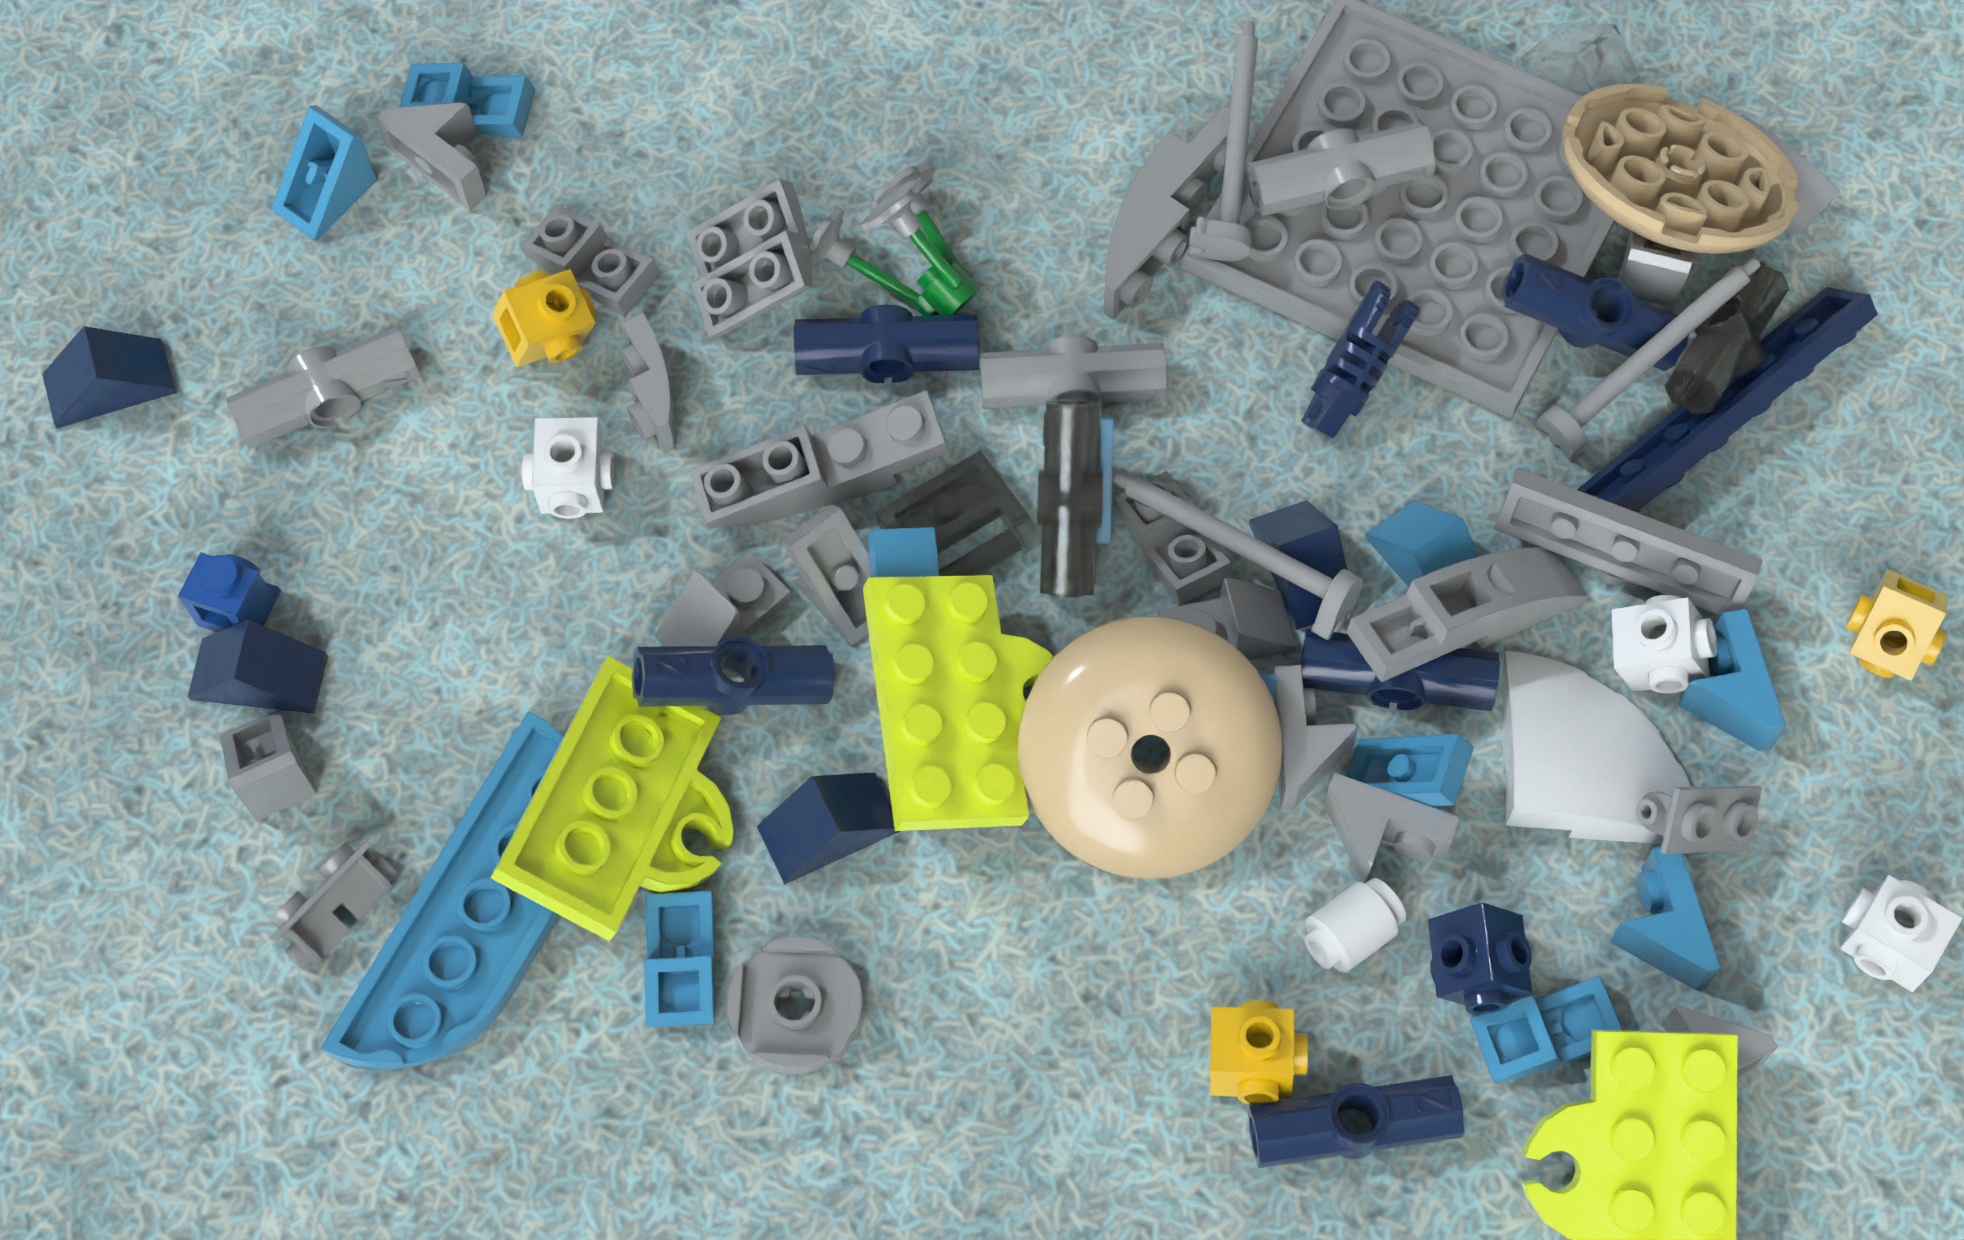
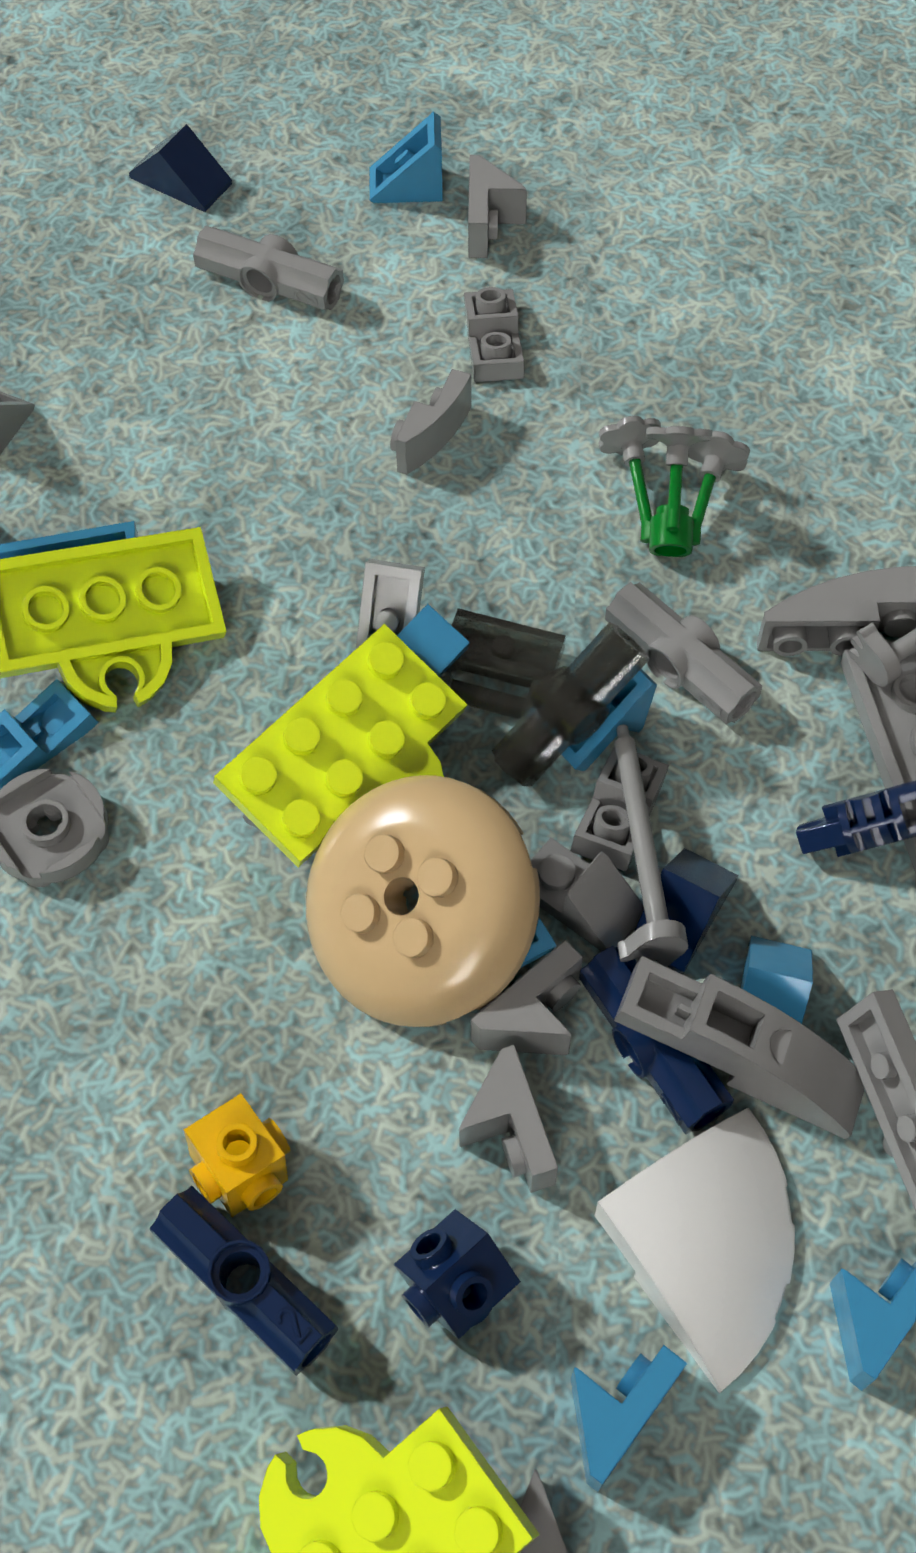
camera: 50 degrees right, 5 degrees down
(226, 592) = (81, 320): blue brick -> none
(258, 669) = (50, 376): dark blue slope -> none
(496, 102) = (548, 210): dark azure slope -> none
(545, 317) = (420, 333): yellow brick -> none
(568, 466) = (327, 419): white brick -> none
(696, 676) = (228, 584): dark blue piece -> none
(726, 607) = (297, 580): light grey slope -> none
(750, 258) = (576, 404): light grey slope -> none
(820, 469) = (462, 556): light grey slope -> none
(826, 822) = (195, 743): dark blue slope -> none
(886, 344) = (593, 526): dark blue piece -> none
(1354, 925) = (409, 1158): white brick -> none
(1414, 767) = (572, 1107): dark azure slope -> none
(1544, 1031) = (438, 1373): dark azure slope -> none
(1662, 644) = (858, 1222): white brick -> none
(1702, 818) = (727, 1369): light grey hinge -> none

